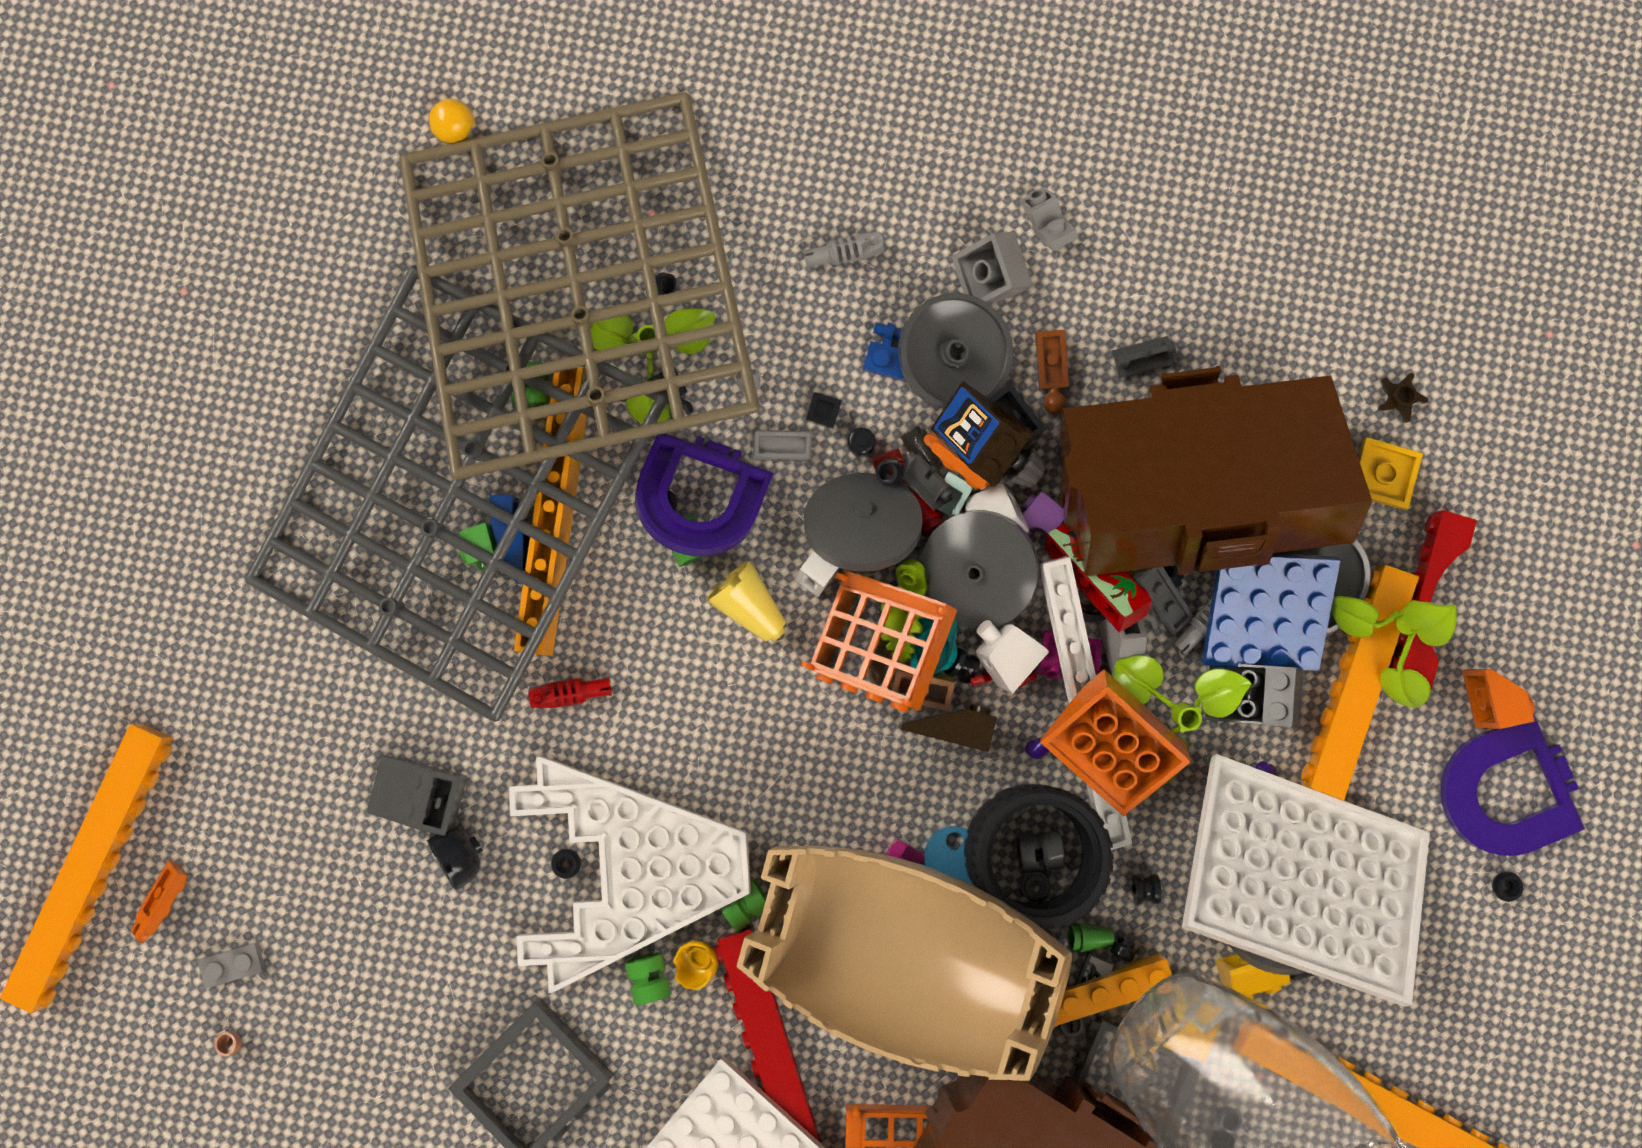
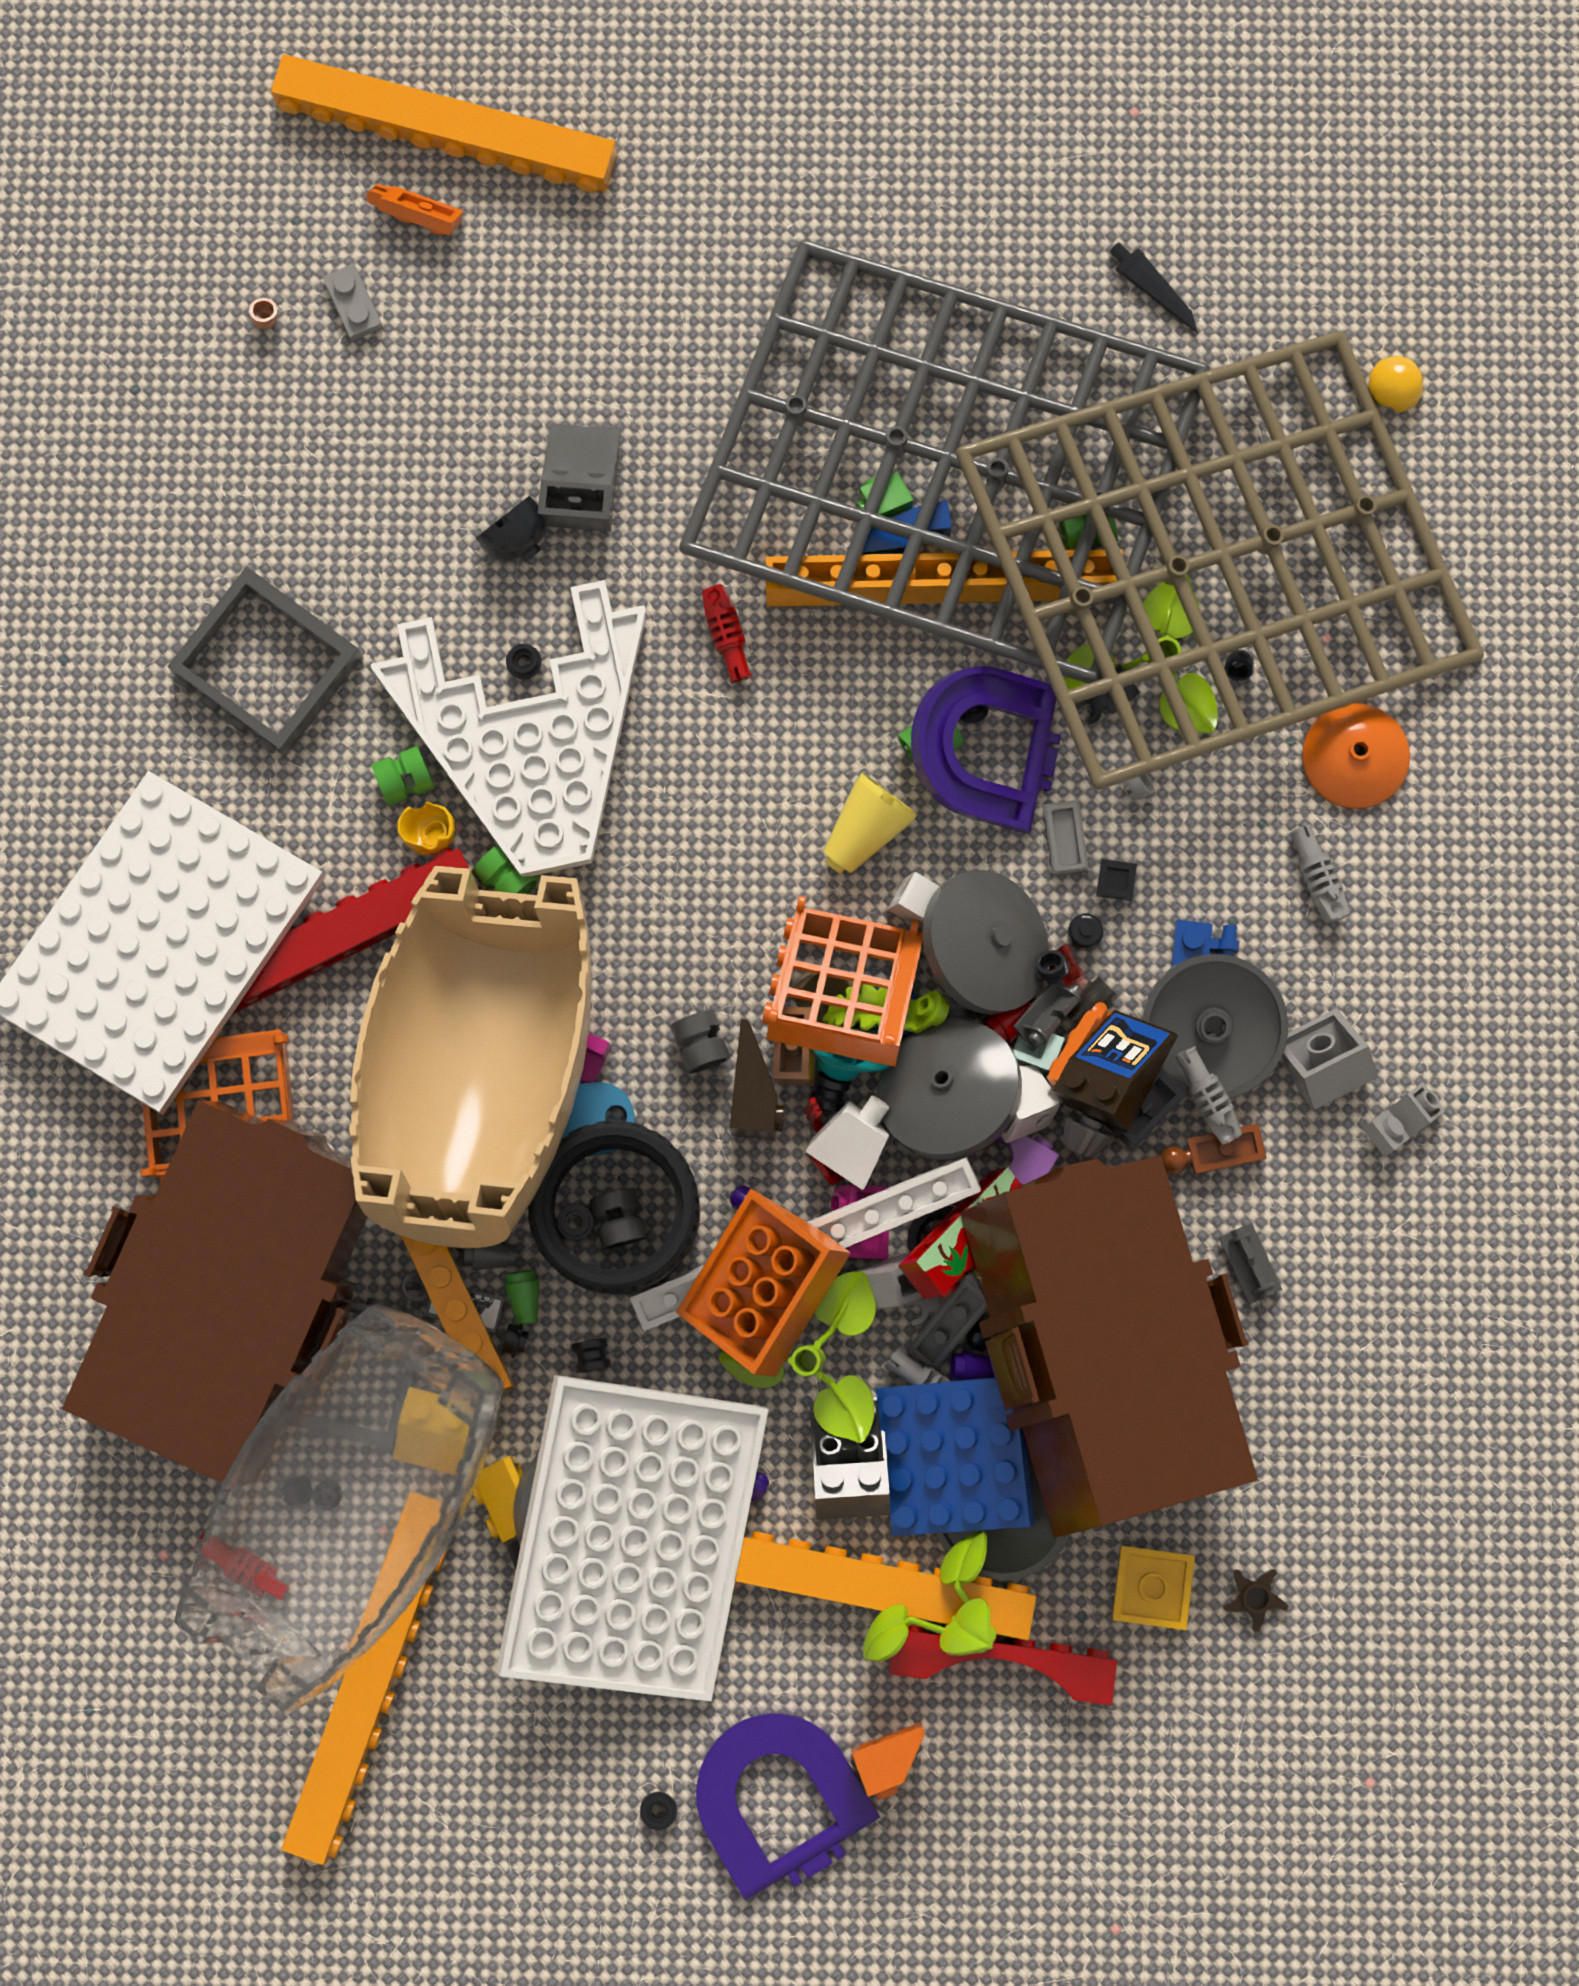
camera: 85 degrees right, 5 degrees down
(326, 305) = (1144, 275): none -> black bar
(754, 224) = (1345, 776): none -> orange dish
(906, 764) = (700, 1041): none -> dark grey wheel
(1012, 365) = (1209, 1097): none -> light grey hinge
(1197, 588) = (970, 1366): none -> dark purple cone

